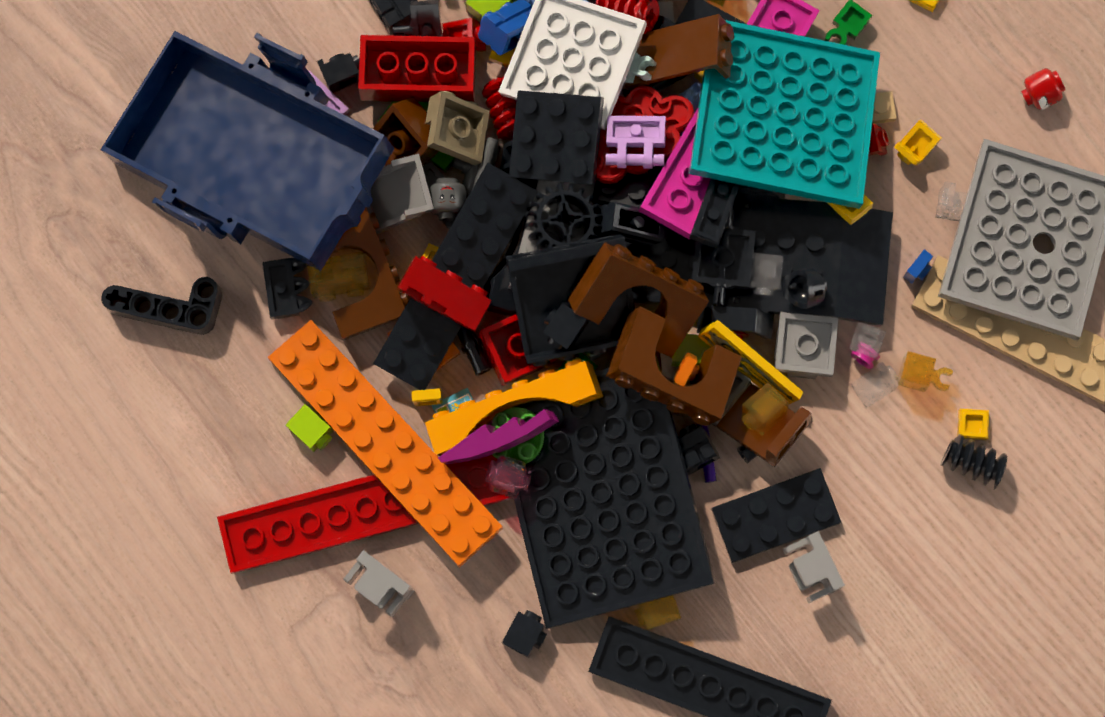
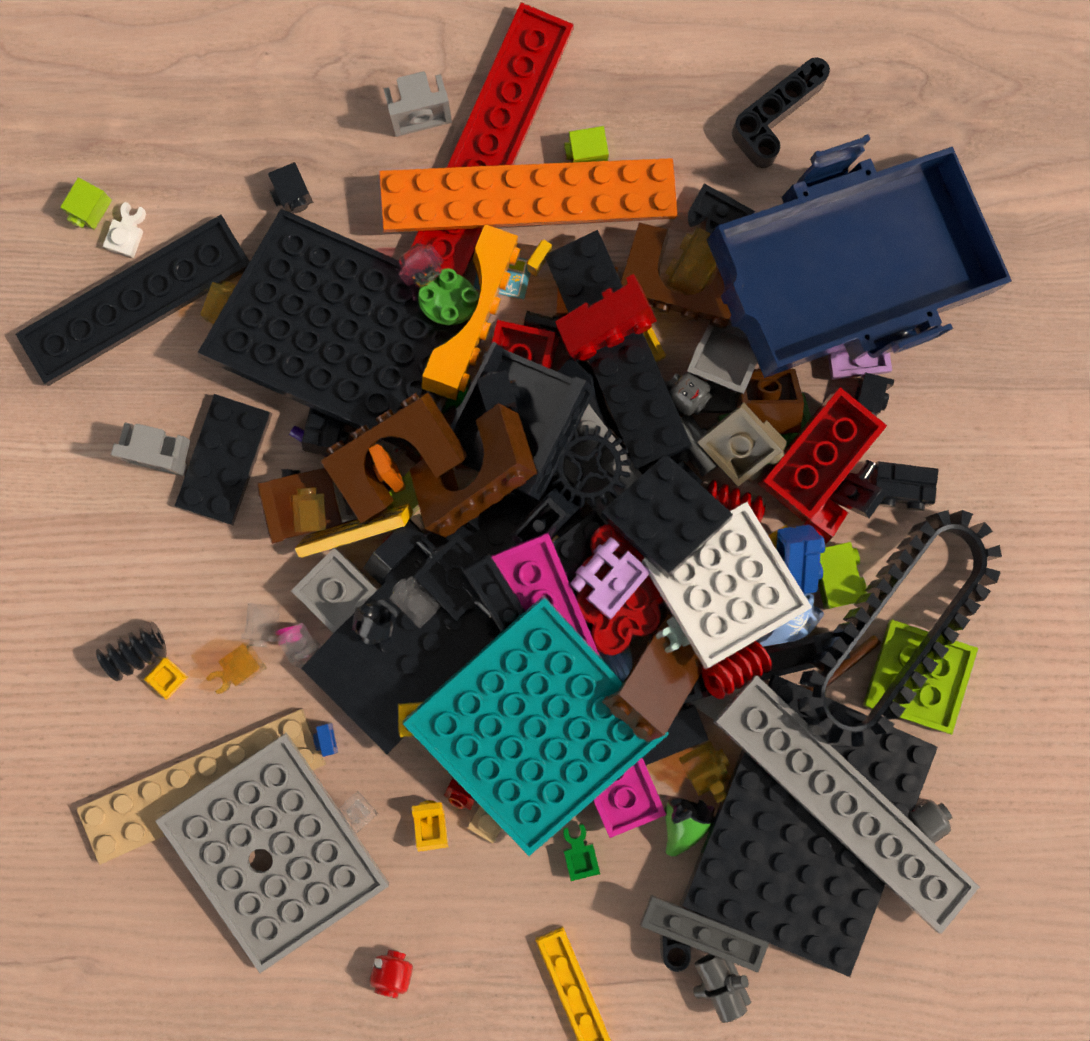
camera: 120 degrees right, 5 degrees up
(489, 441) = (455, 272): magenta slope -> none

